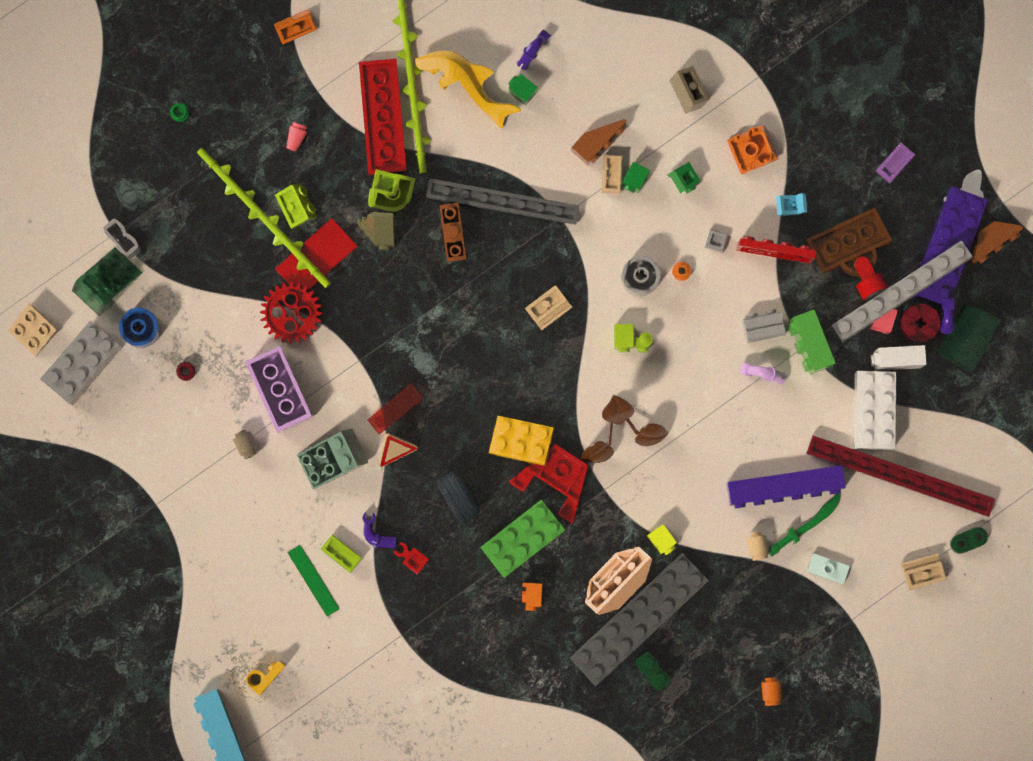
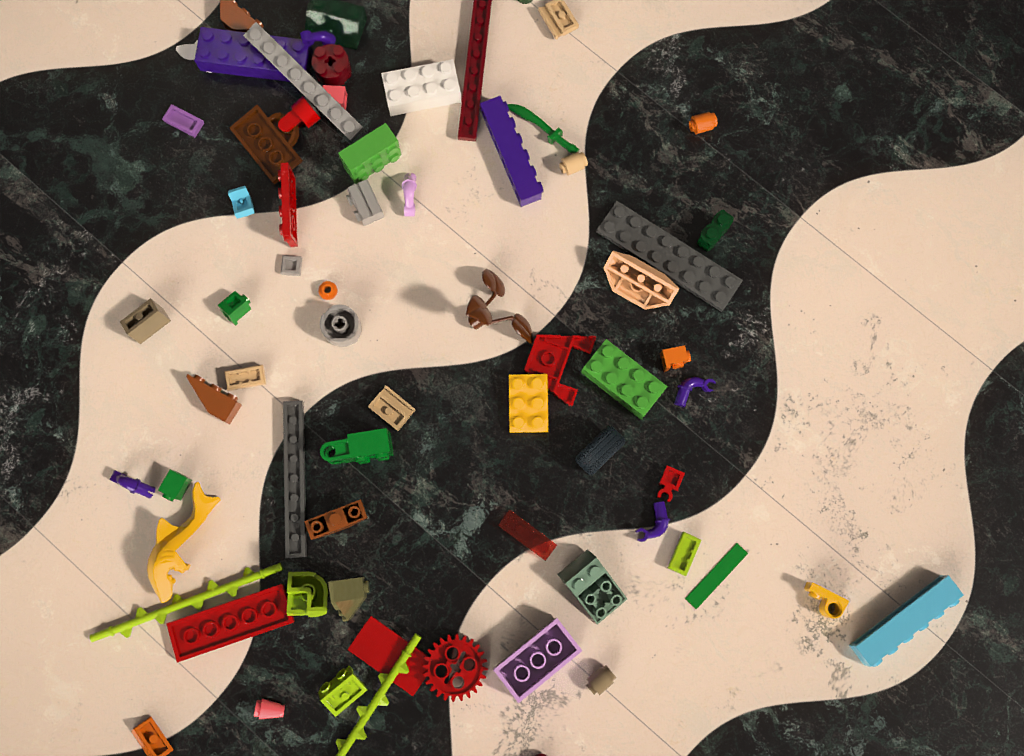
camera: 105 degrees left, 5 degrees down
(394, 449) = (567, 526): piece -> none
(501, 600) = (686, 387): none -> dark purple piece
(515, 269) = (360, 447): none -> green brick
(625, 339) = (404, 328): lime brick -> none
(635, 178) = (244, 354): green brick -> none
(662, 540) = (590, 250): neon yellow brick -> none
(753, 149) = (194, 250): orange slope -> none
(828, 568) = (577, 99): light aqua plate -> none
(899, 358) = (367, 73): white brick -> none

